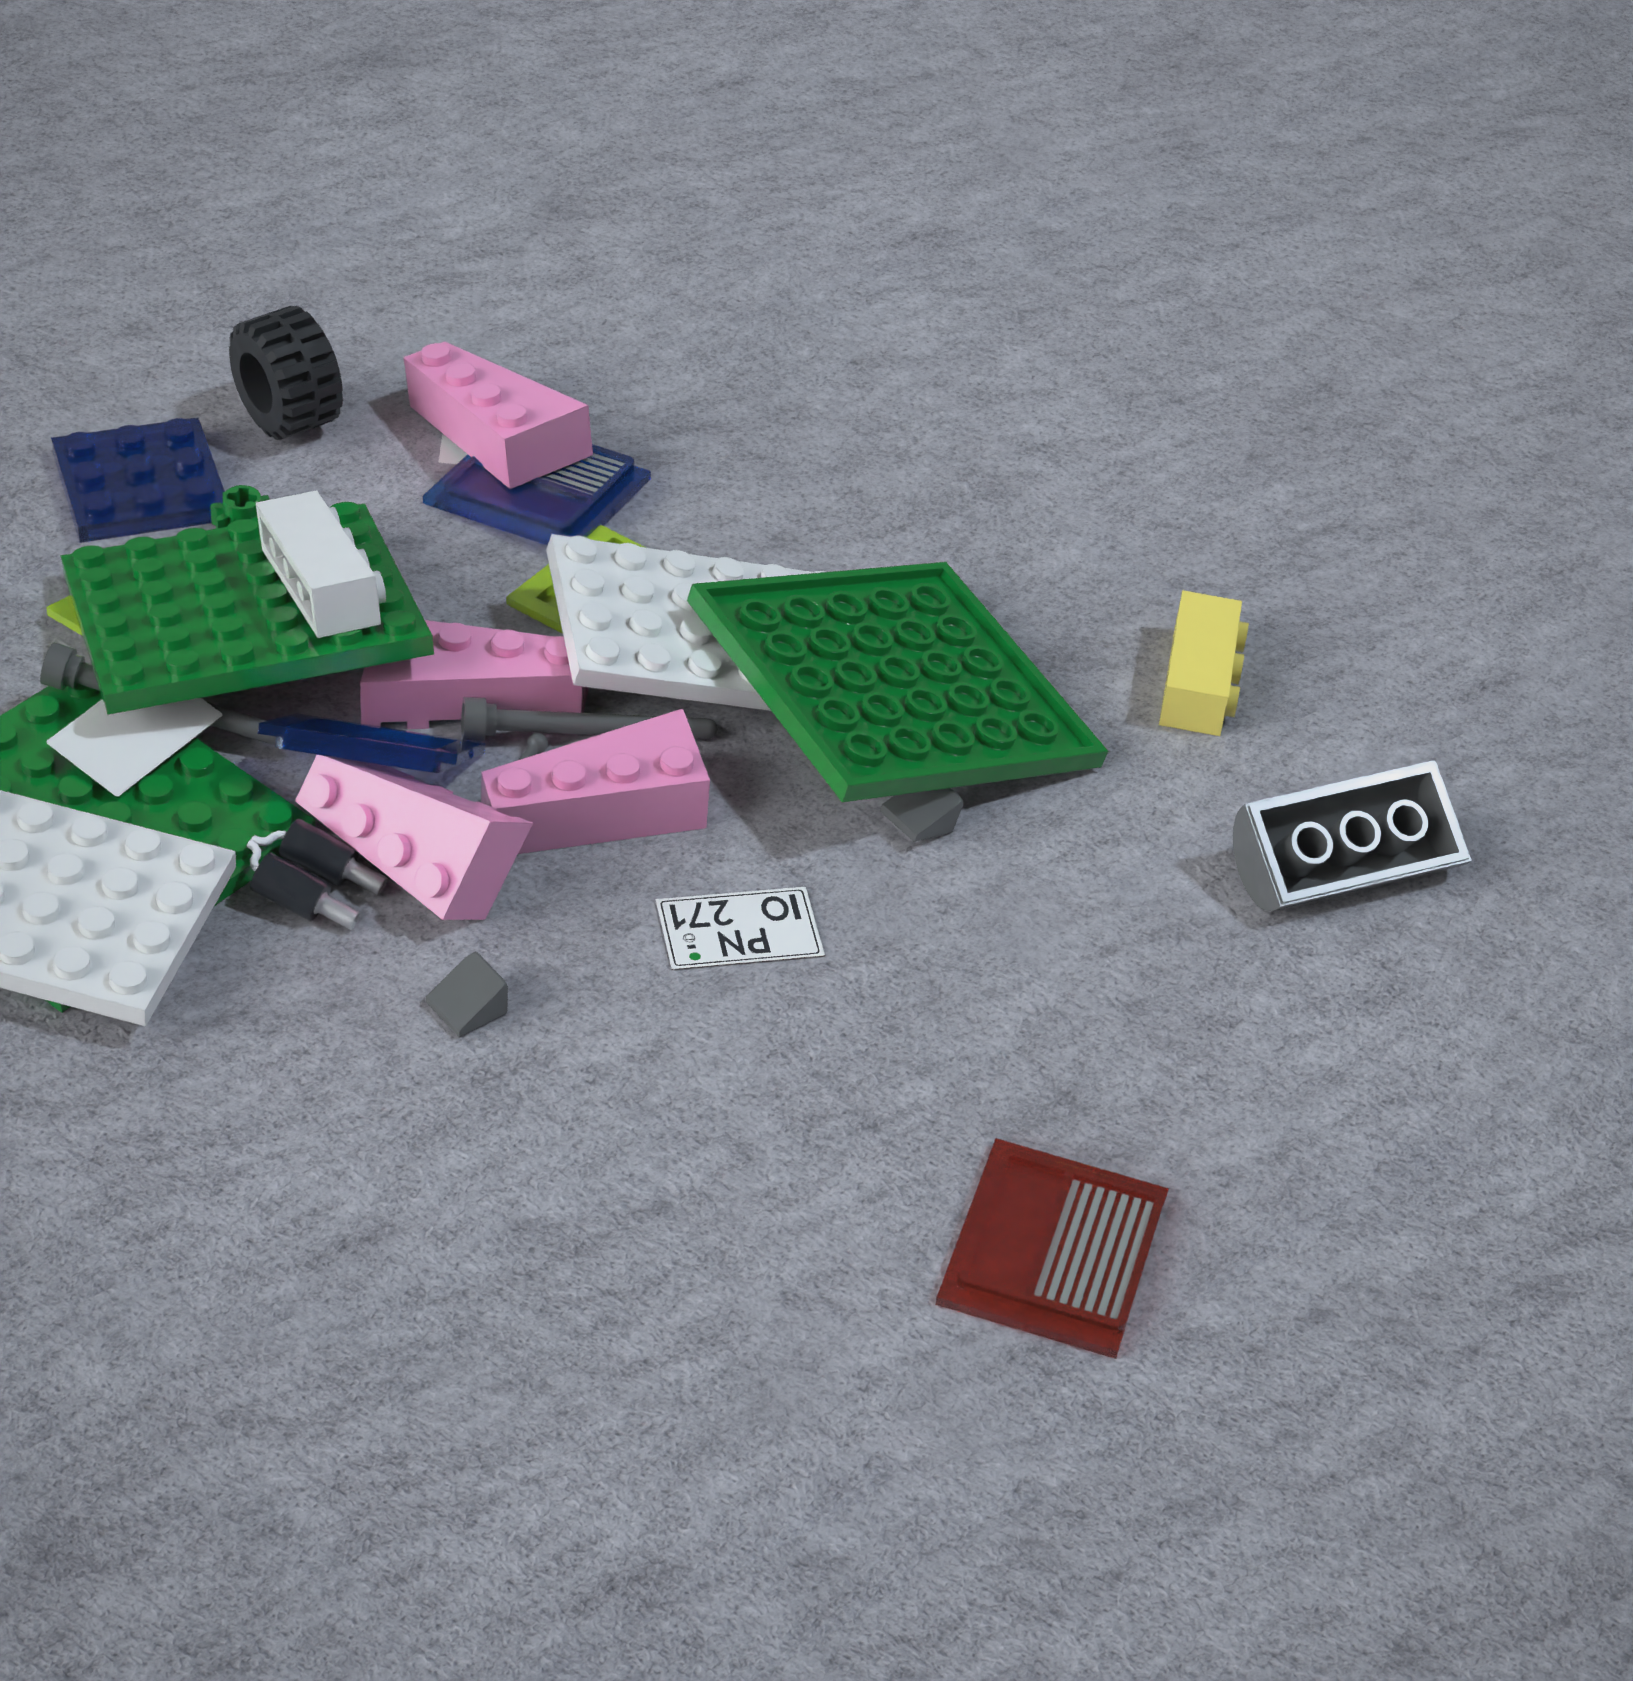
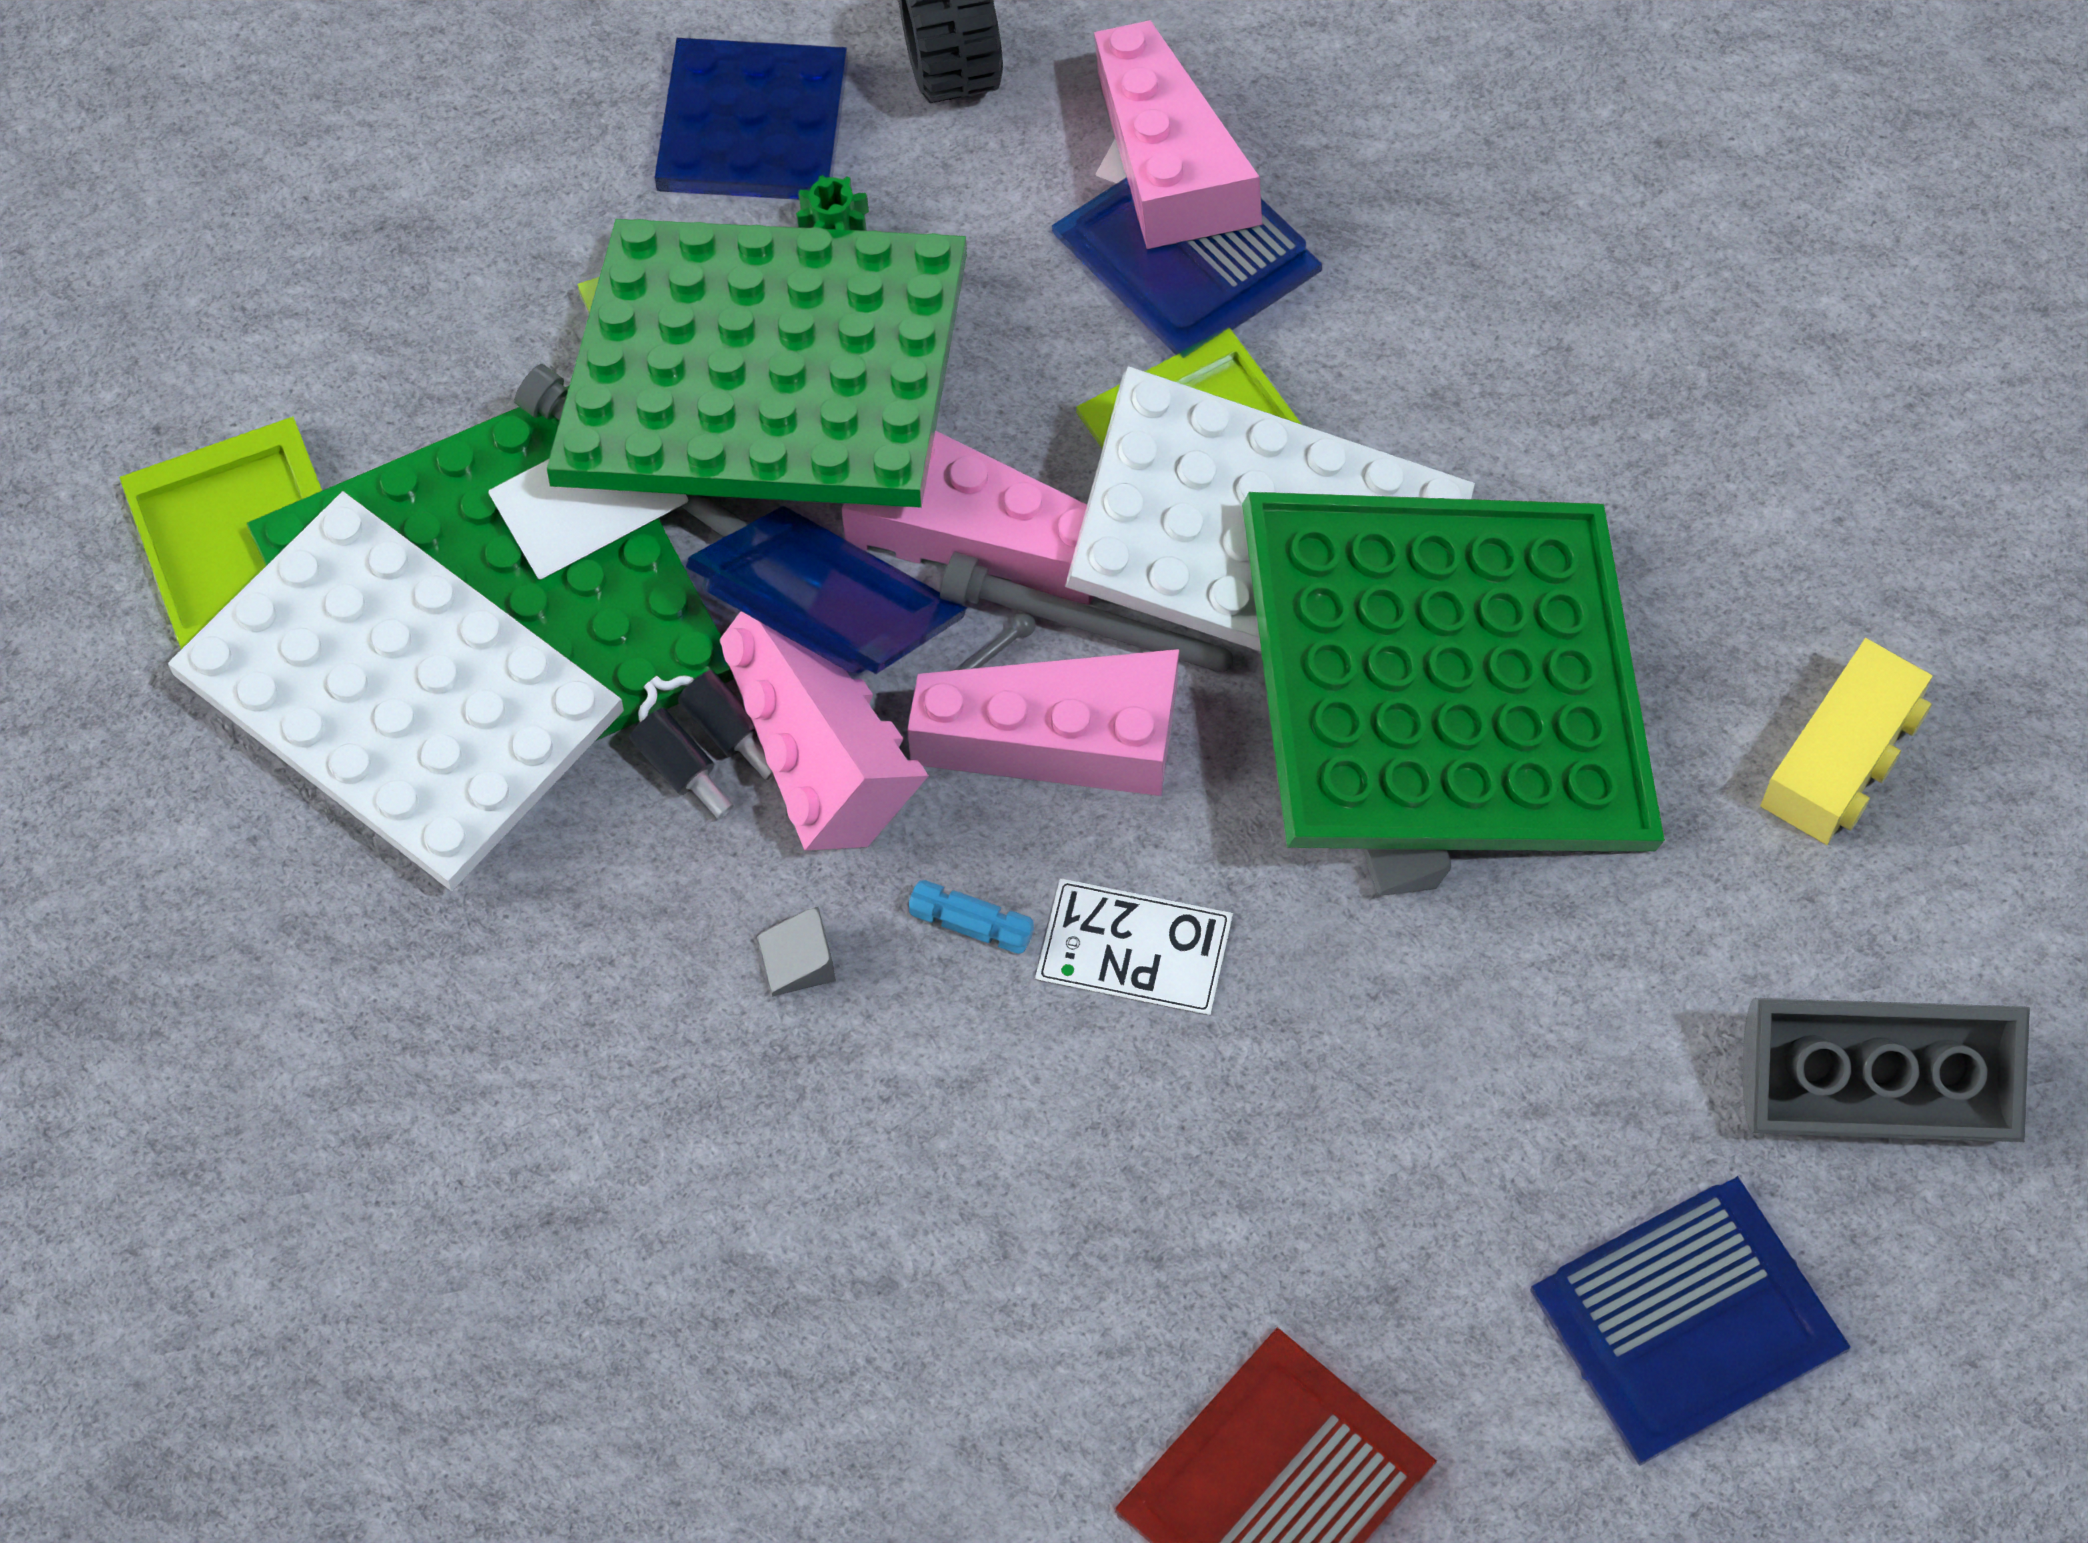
camera: 30 degrees right, 20 degrees up
(320, 564) = (838, 352): white brick -> none
(599, 936) = (971, 916): none -> dark azure axle
(1297, 1046) = (1688, 1319): none -> clear blue piece

